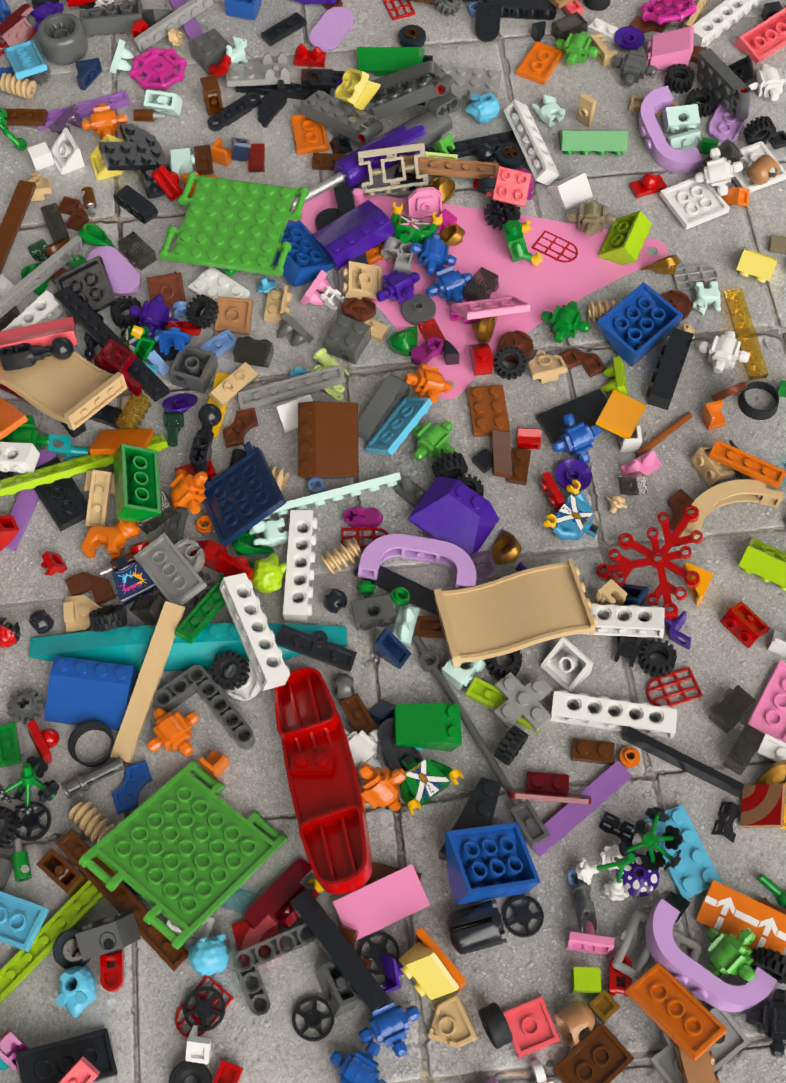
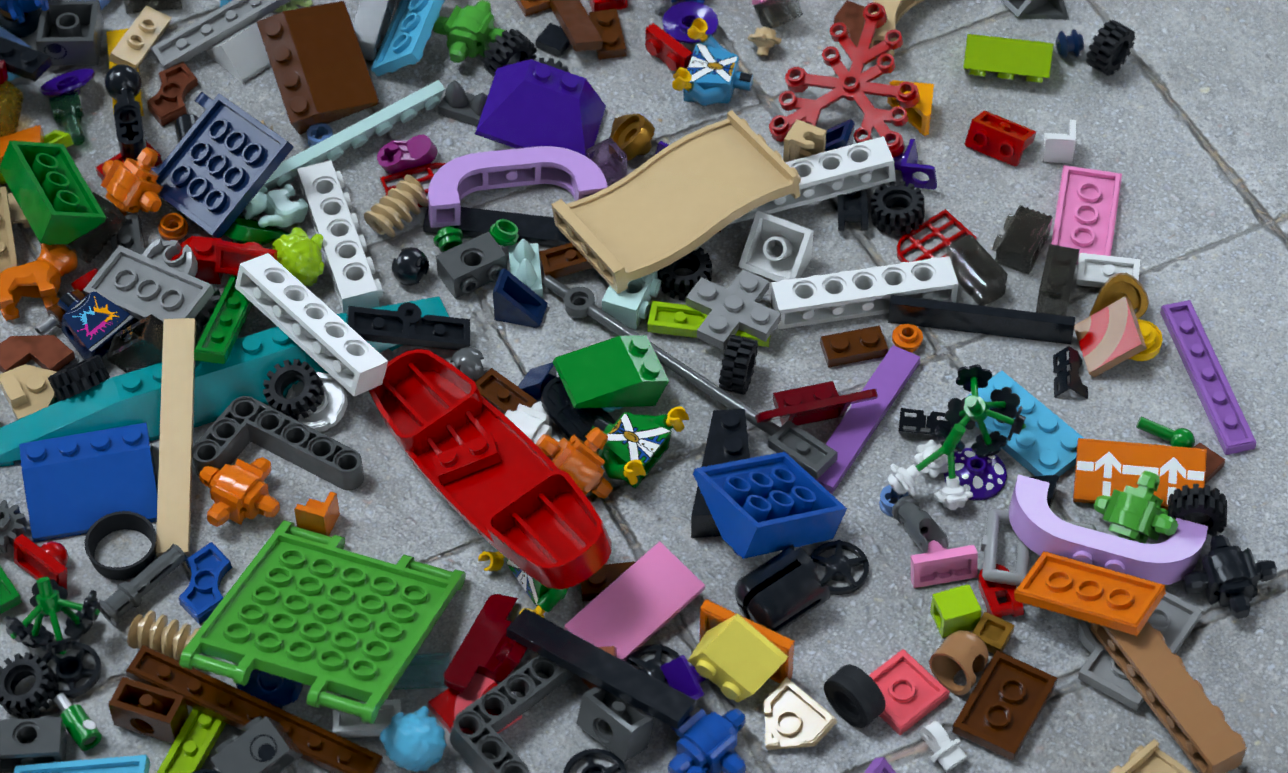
camera: 20 degrees left, 10 degrees down
(692, 723) = (977, 270): none -> clear smoke brick

